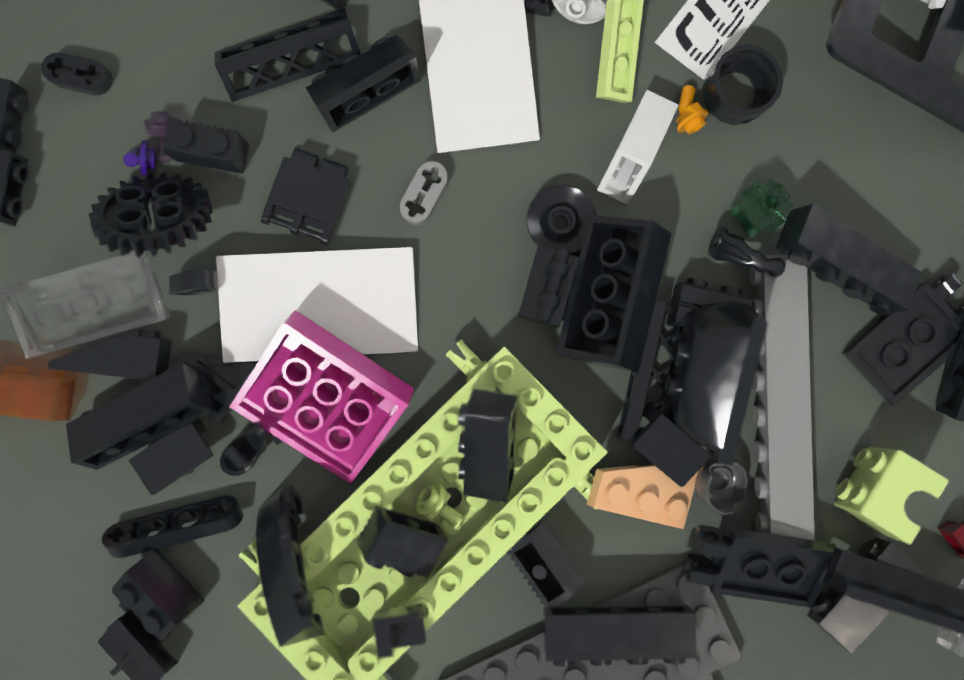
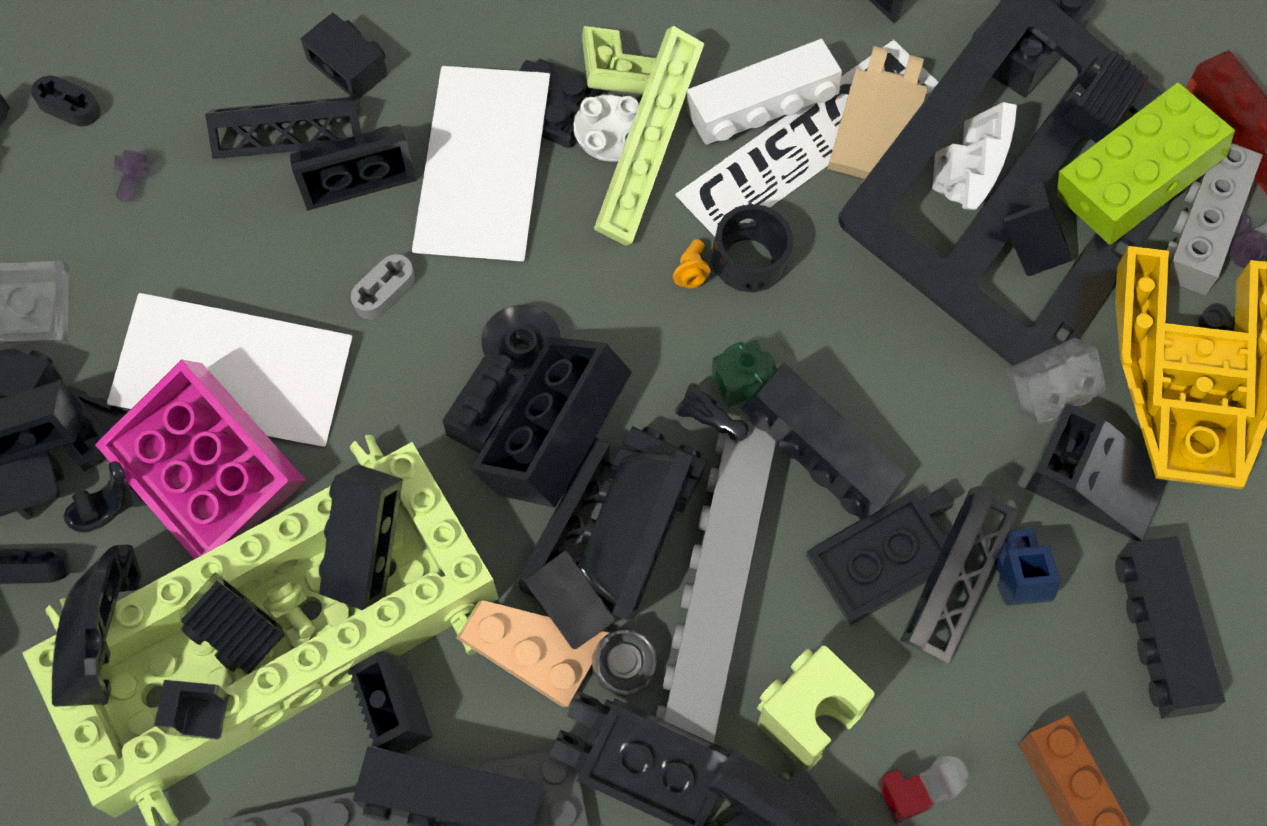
camera: 10 degrees right, 20 degrees down
(125, 218) = (86, 236): black gear -> none
(144, 157) = (103, 189): dark purple plate -> none
(193, 282) = (105, 315): black beam -> none
(206, 146) = (169, 190): black brick -> none
(307, 195) = (258, 260): black plate -> none
(638, 147) = (622, 285): white slope -> none

